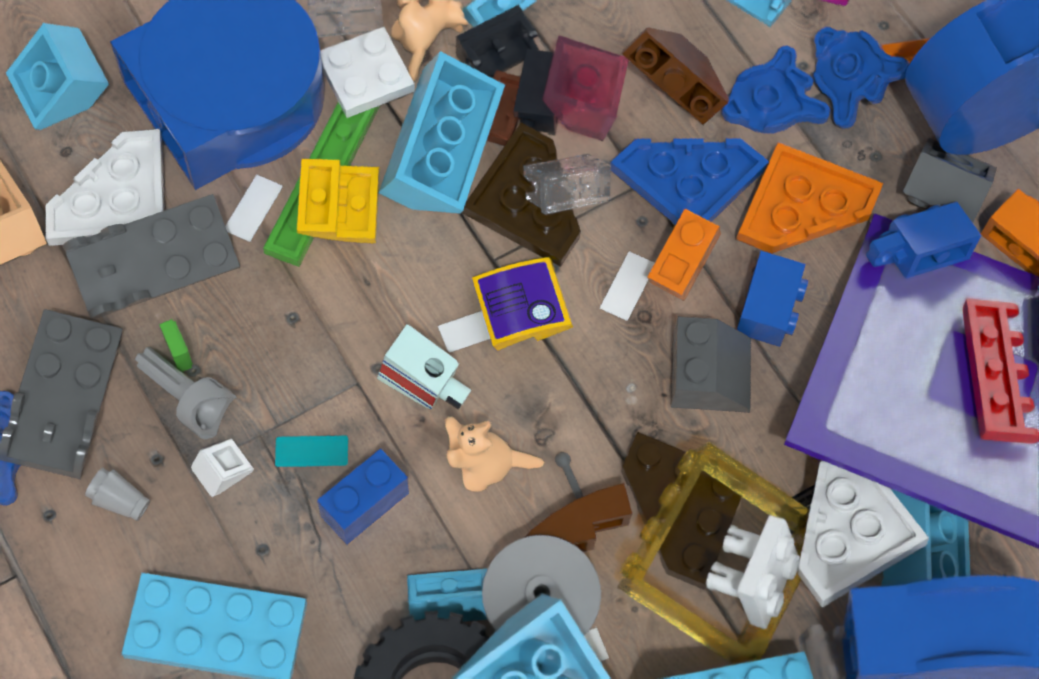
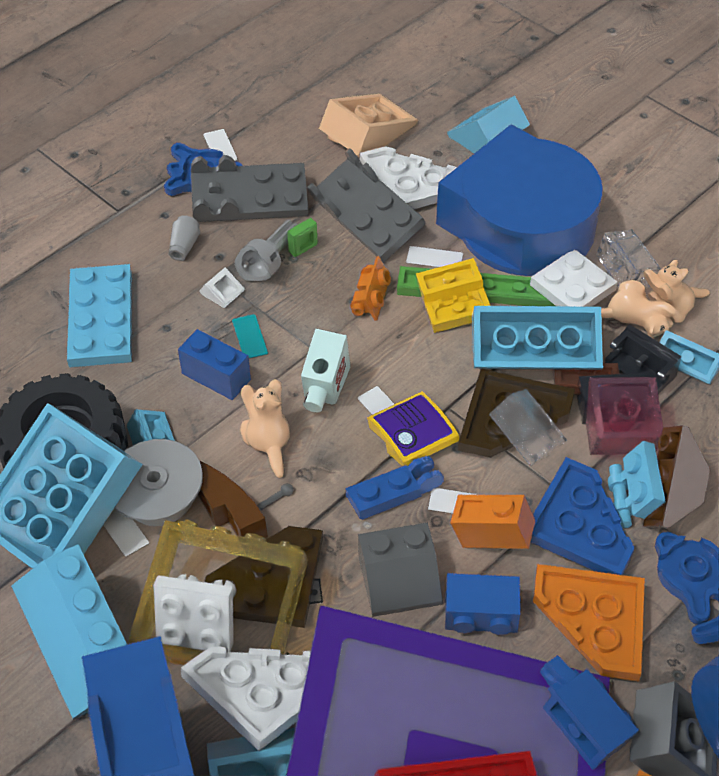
camera: 80 degrees right, 15 degrees down
(305, 296) = (372, 289): none -> orange hinge
(597, 349) = (394, 487): none -> blue hinge
(670, 98) = (641, 479): none -> medium azure plate

